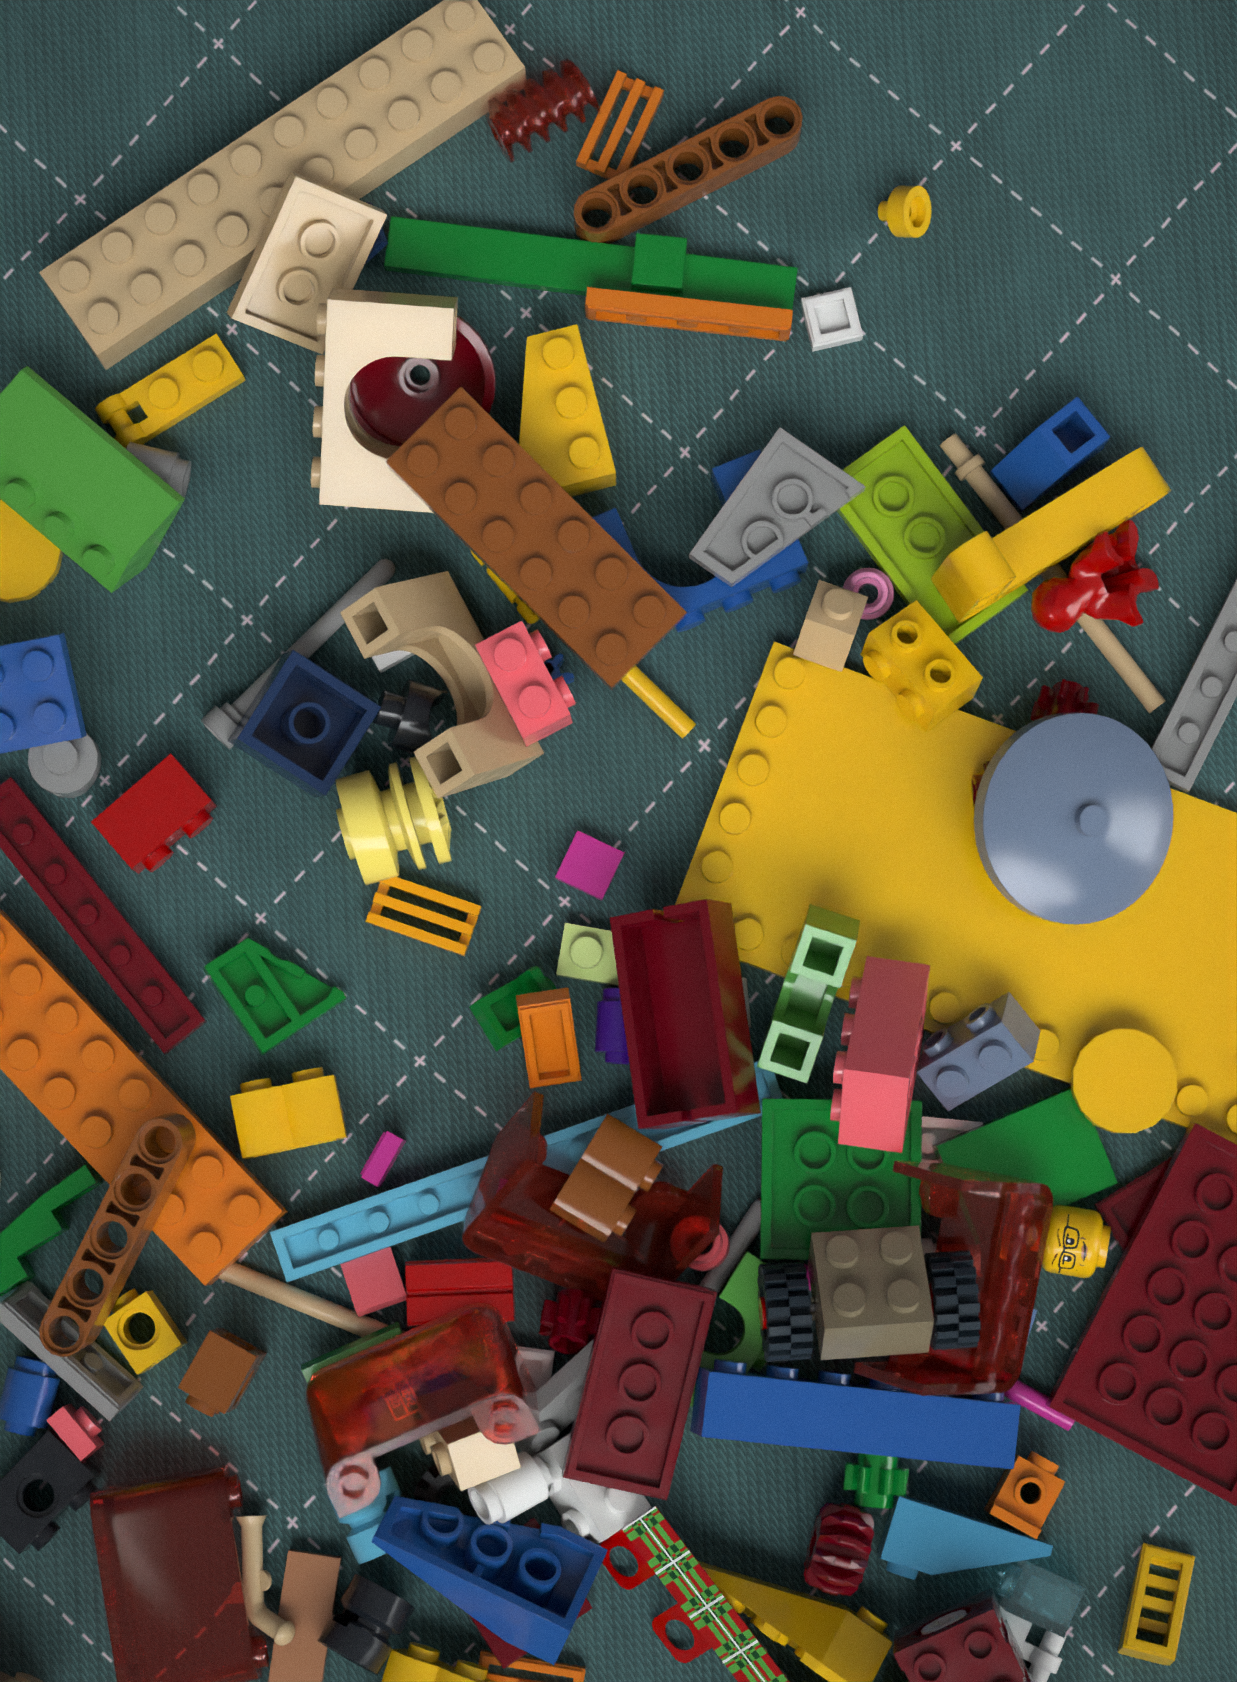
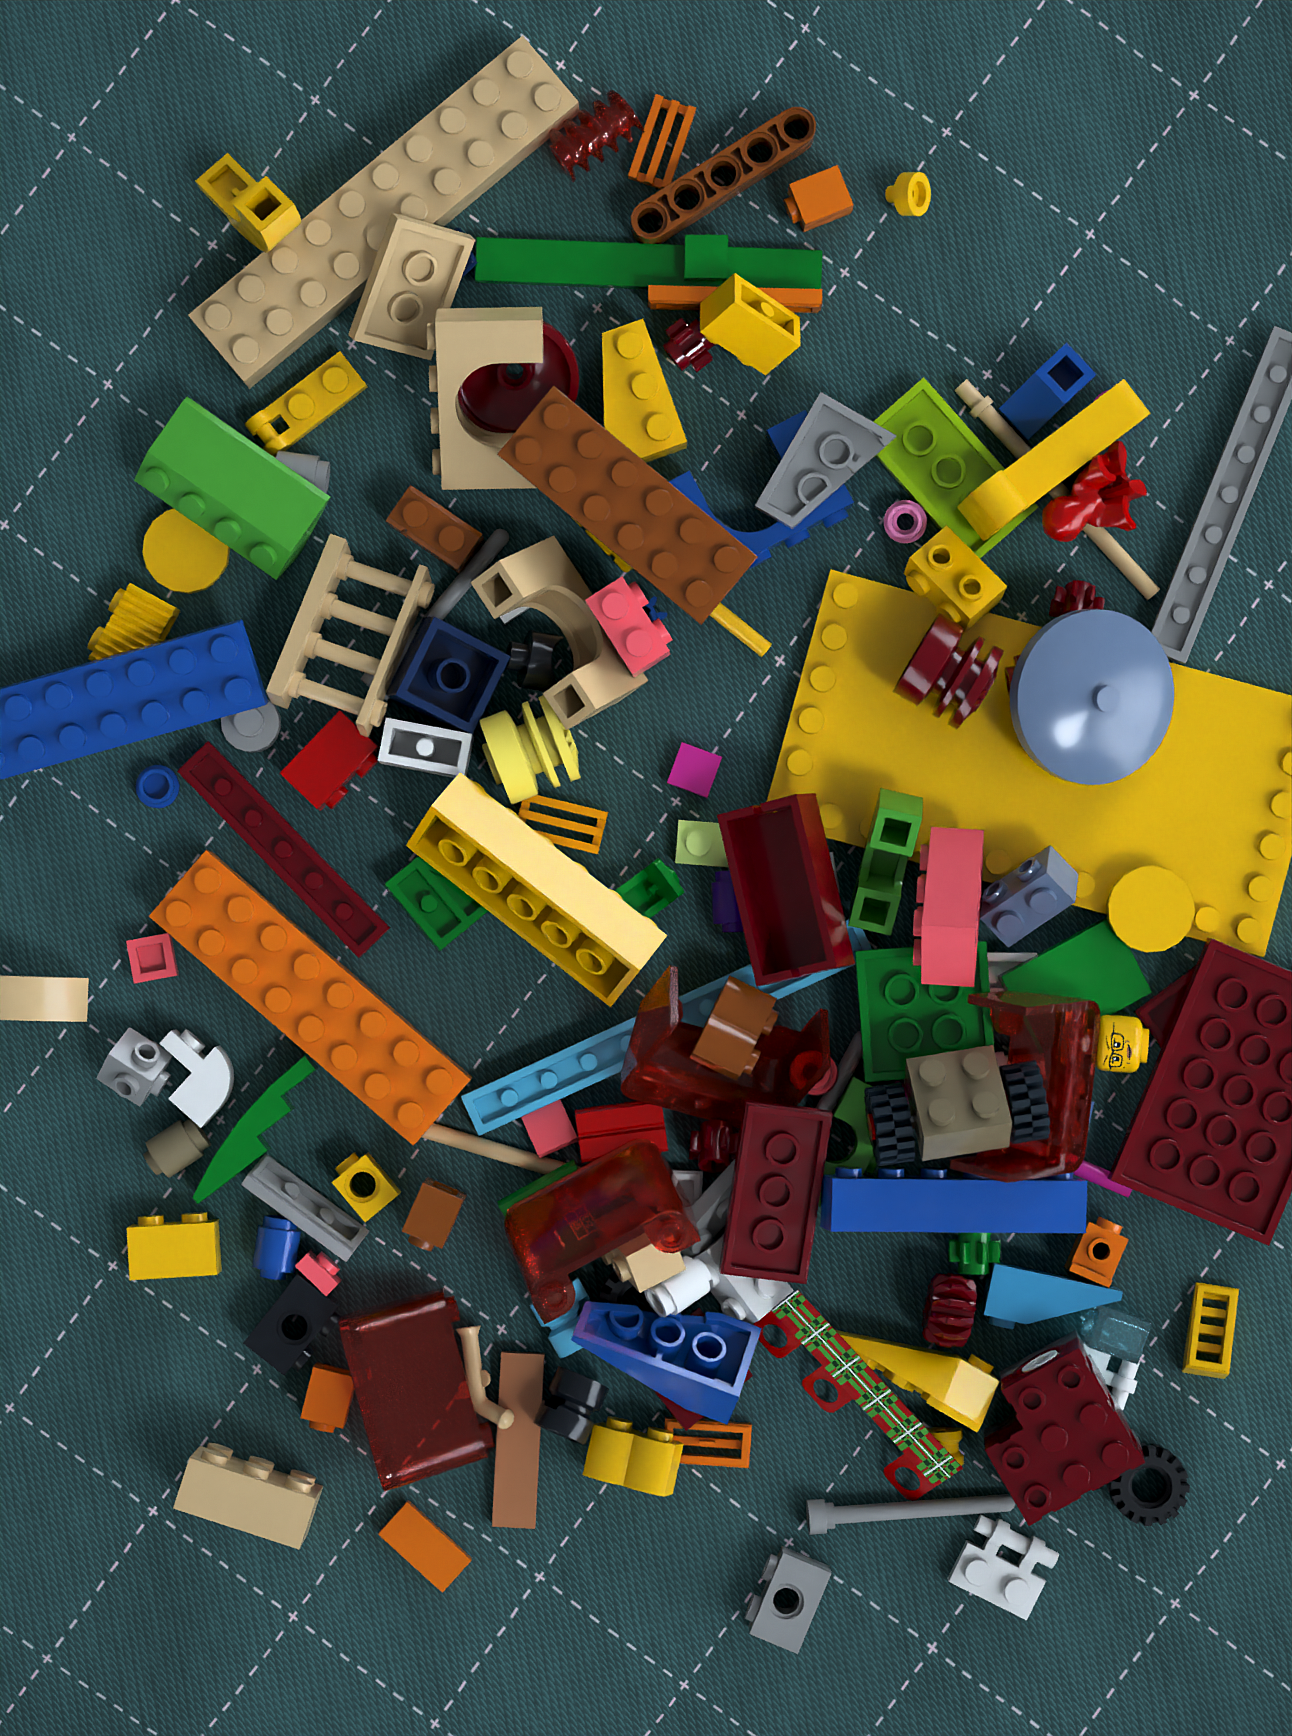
camera: 10 degrees left, 5 degrees up
(70, 1587) = (328, 1397): none -> orange brick
(97, 1249) = (324, 1125): dark orange beam -> none
(129, 152) = (253, 208): none -> yellow arch
(162, 625) = (322, 603): none -> tan fence
(269, 809) = (425, 748): none -> white brick
(288, 1114) = (465, 999): yellow brick -> none
(307, 551) = (435, 529): none -> dark orange brick
(382, 1158) = (547, 1027): dark pink tile -> none
(383, 988) = (535, 889): none -> yellow brick
(548, 1037) = (675, 915): orange tile -> none
(629, 362) = (687, 345): none -> dark red gear
(702, 343) = (749, 324): none -> yellow brick
(798, 207) = (818, 199): none -> orange brick
(830, 625) = (876, 553): tan brick -> none
(831, 319) = (854, 291): white tile -> none
(904, 772) = (949, 671): none -> dark red wheel

